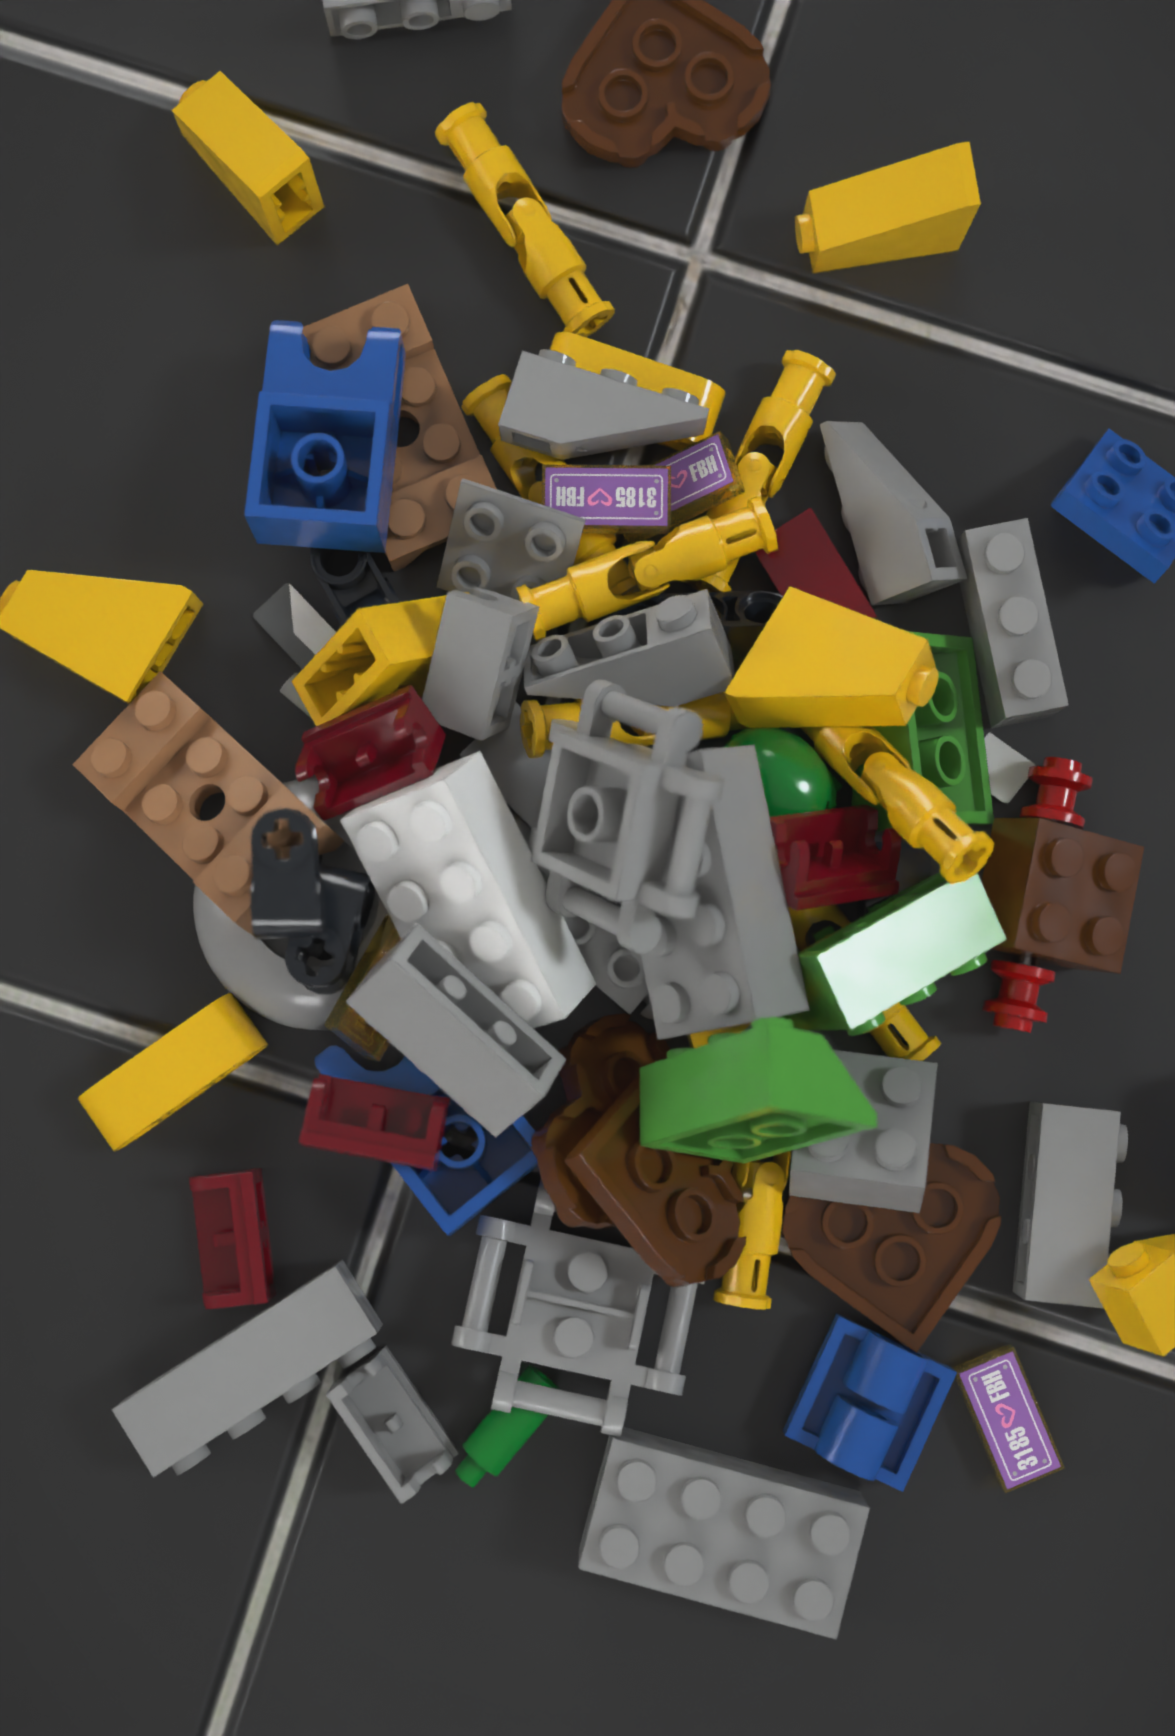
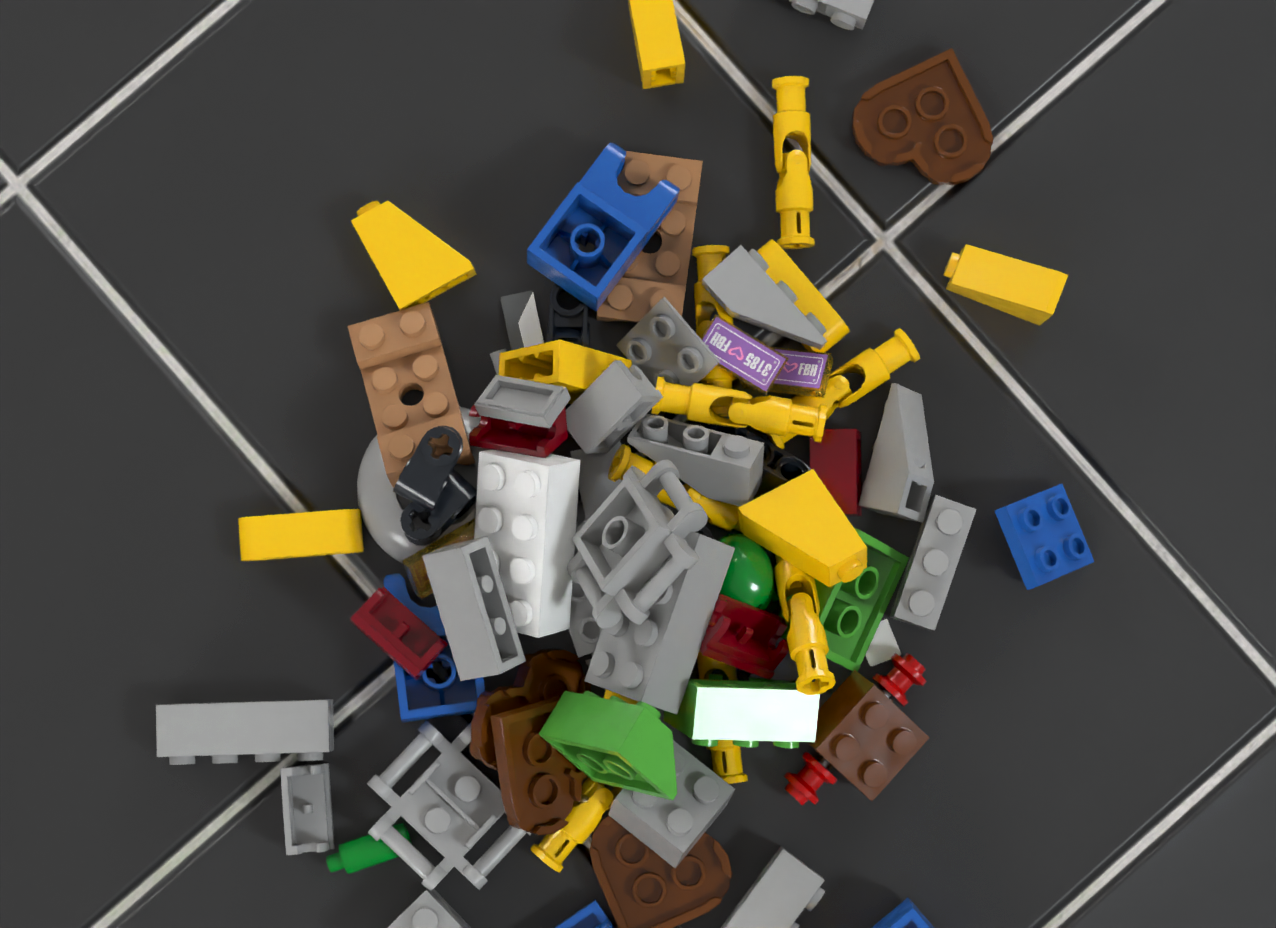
camera: 35 degrees right, 0 degrees up
(233, 1238) = (278, 649): dark red hinge -> none
(358, 719) = (522, 401): none -> light grey tile

